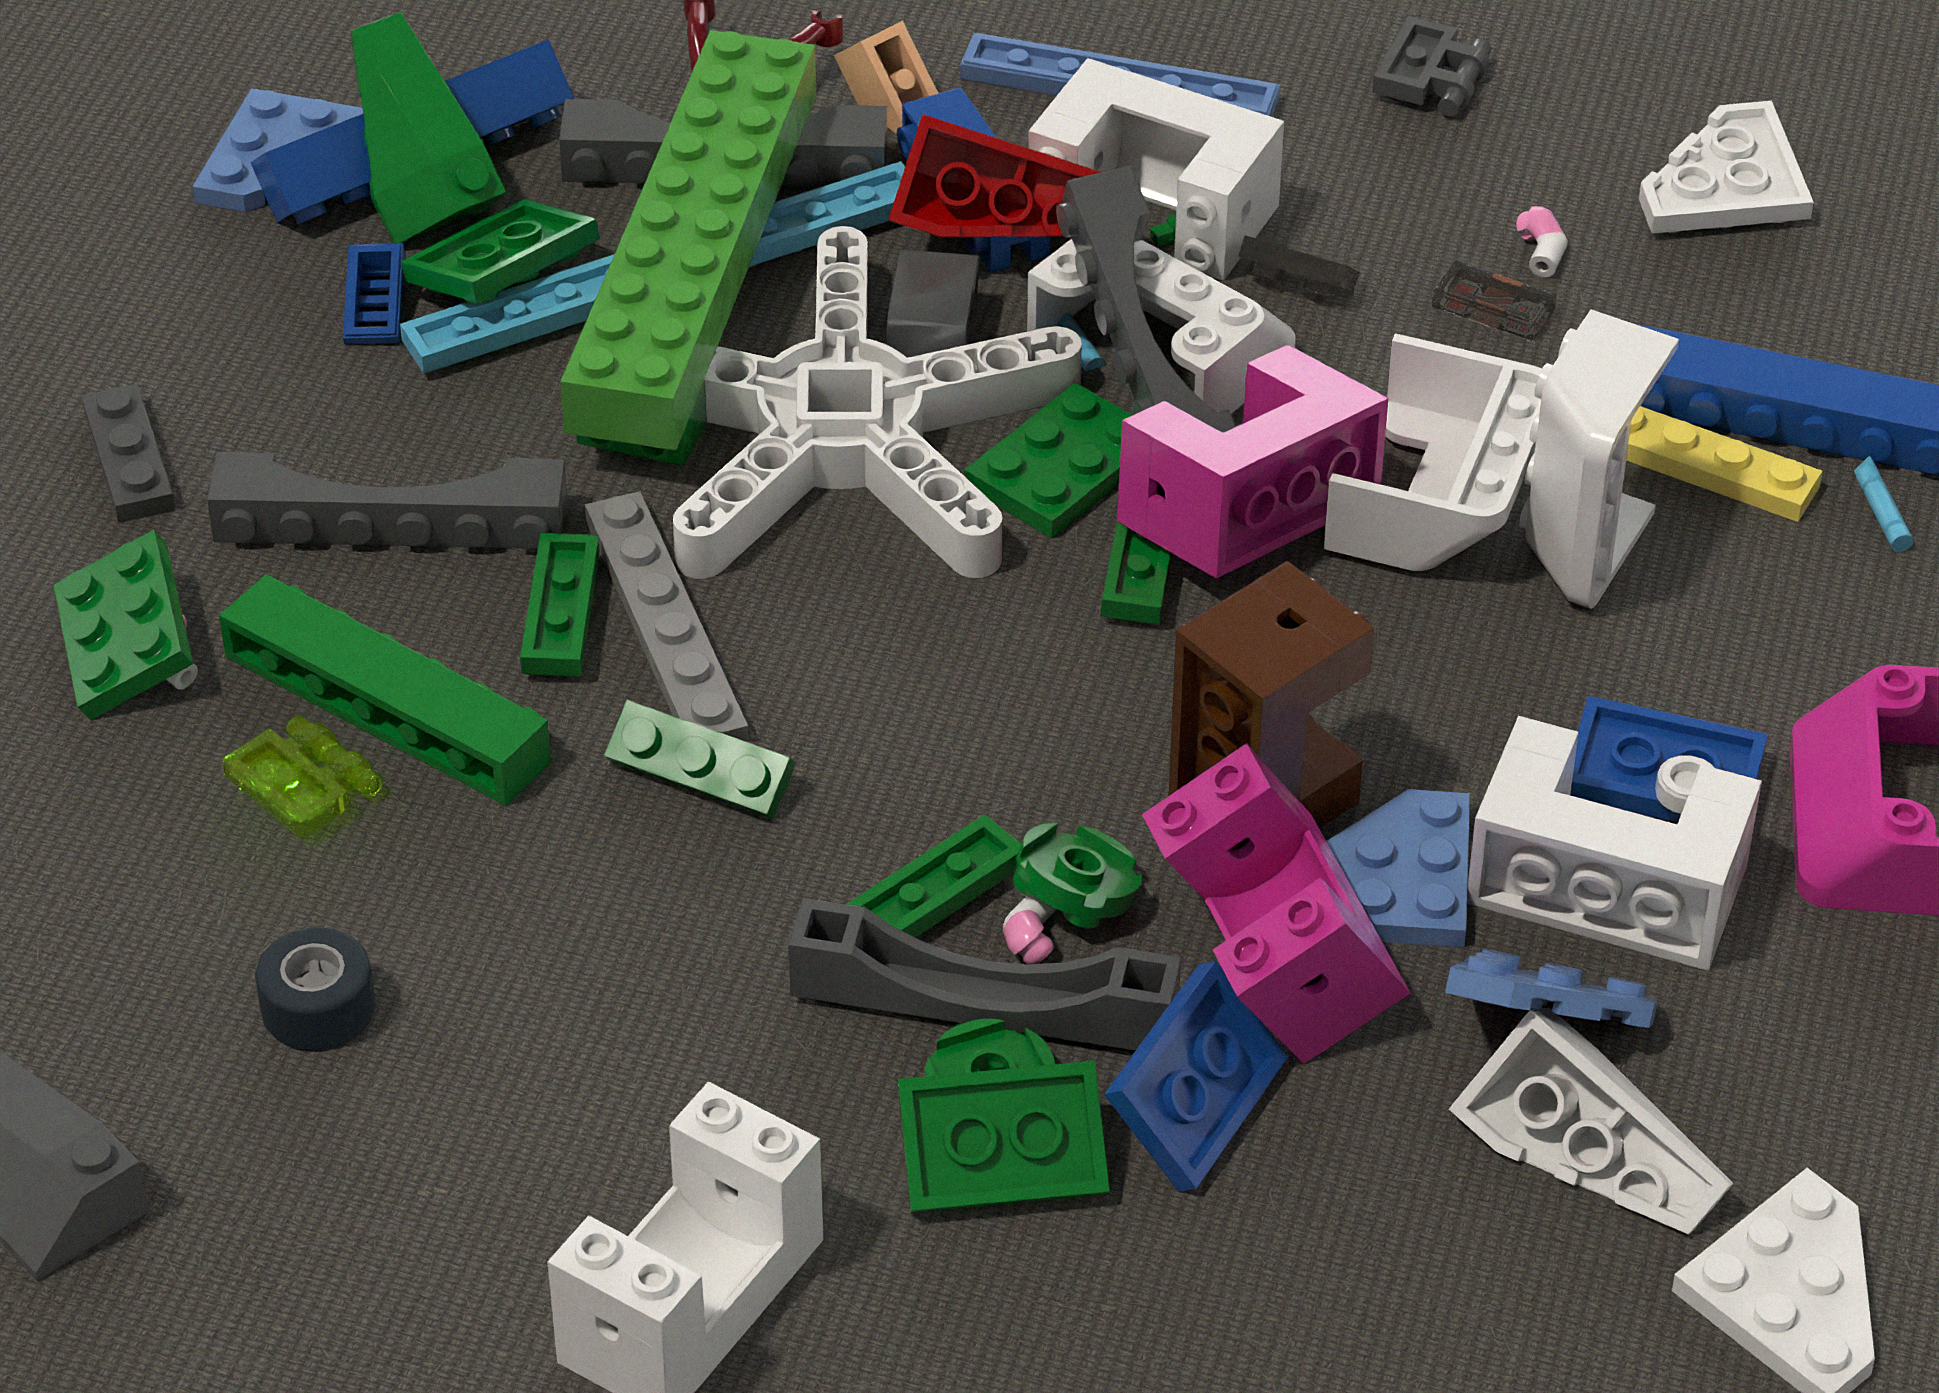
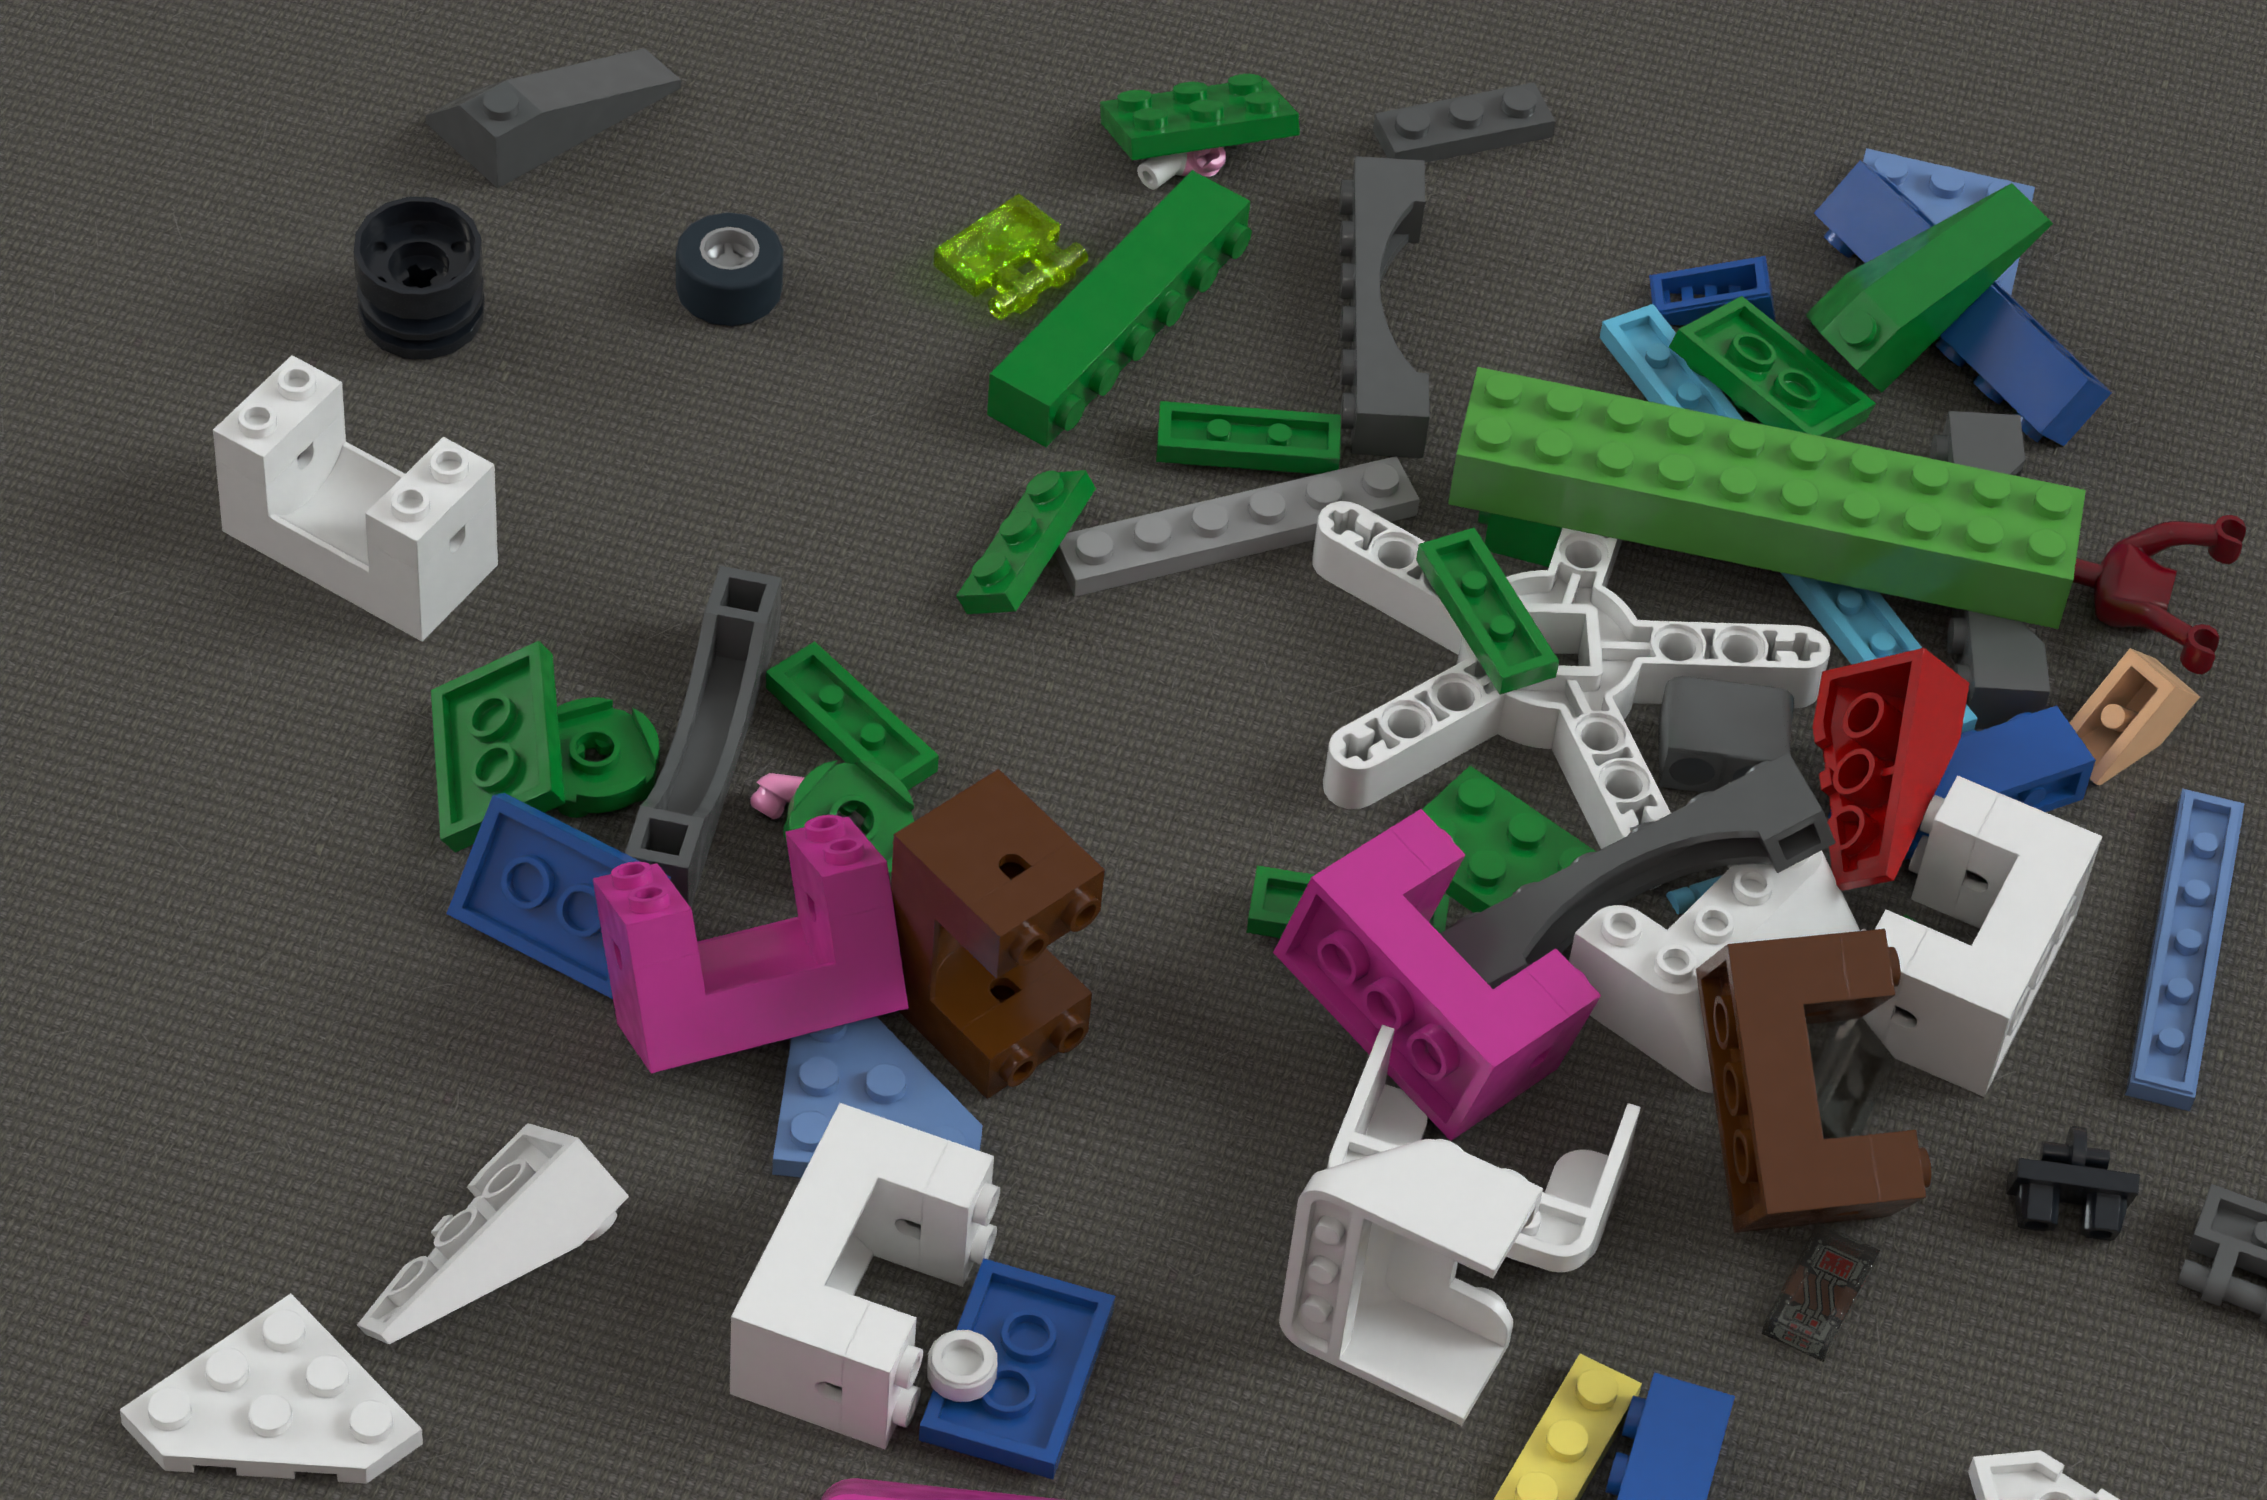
camera: 85 degrees right, 5 degrees up
(344, 1226) = (419, 277): none -> black wheel
(826, 416) = (1487, 611): none -> green plate
(1349, 257) = (1765, 1087): none -> reddish brown piece
(1385, 149) = (2073, 1176): none -> black hips
(1498, 980) = (648, 1182): medium blue plate -> none
(1542, 226) = (1937, 1355): arm -> none

